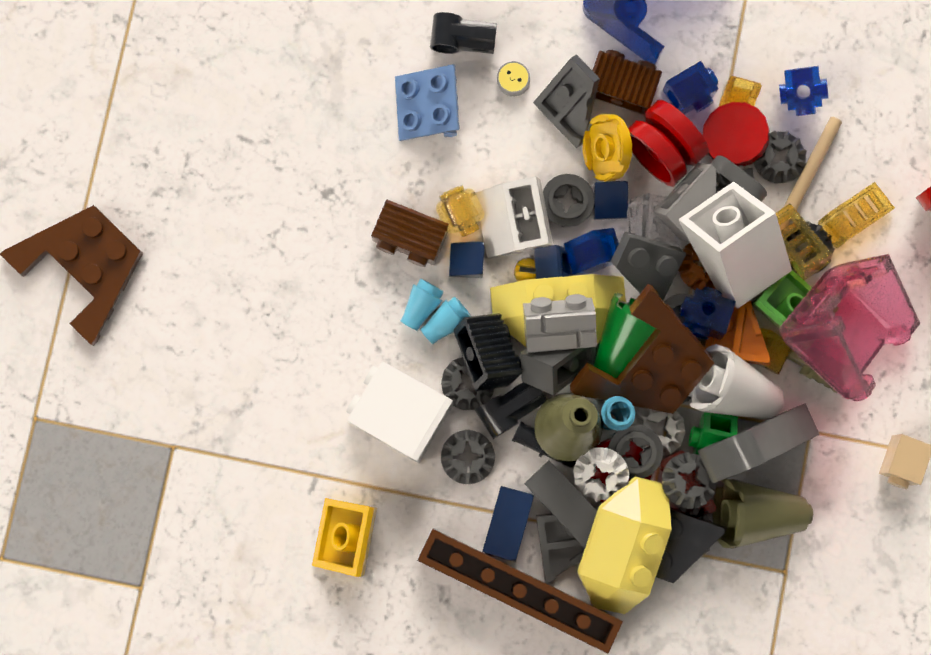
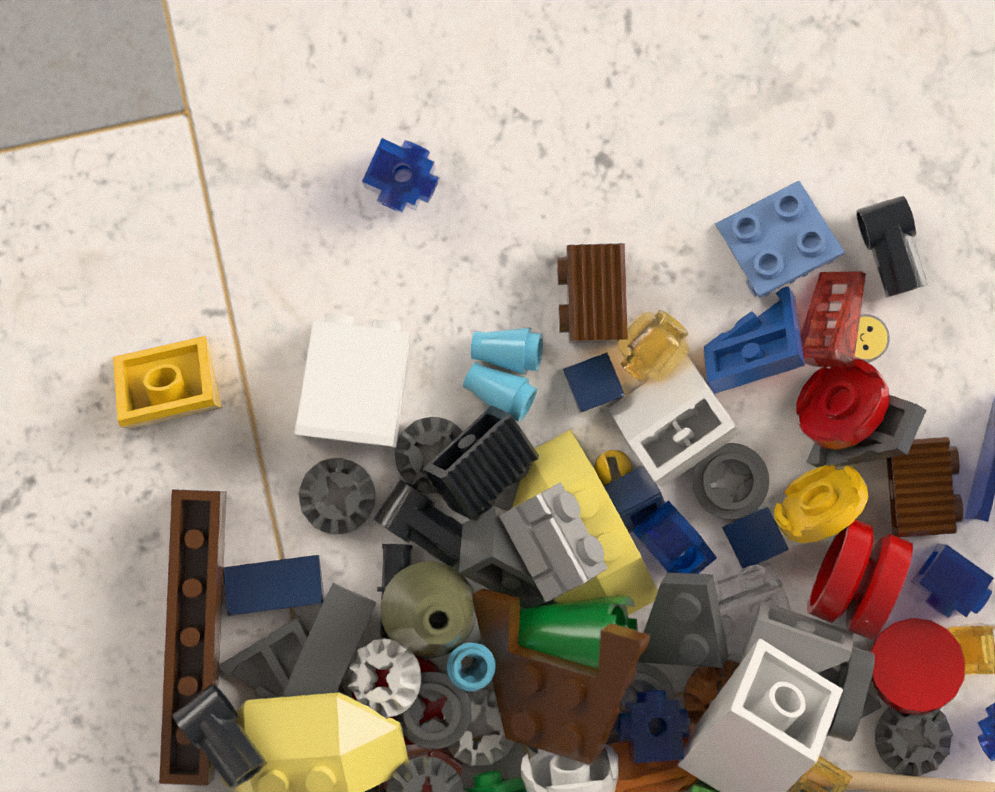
camera: 65 degrees right, 5 degrees up
(265, 323) = (388, 163): none -> clear blue brick
(489, 145) = (756, 346): none -> blue wing
(515, 92) = (844, 335): none -> clear red slope
(549, 107) = (842, 404): none -> red tile
(586, 599) = (213, 725): none -> black piece

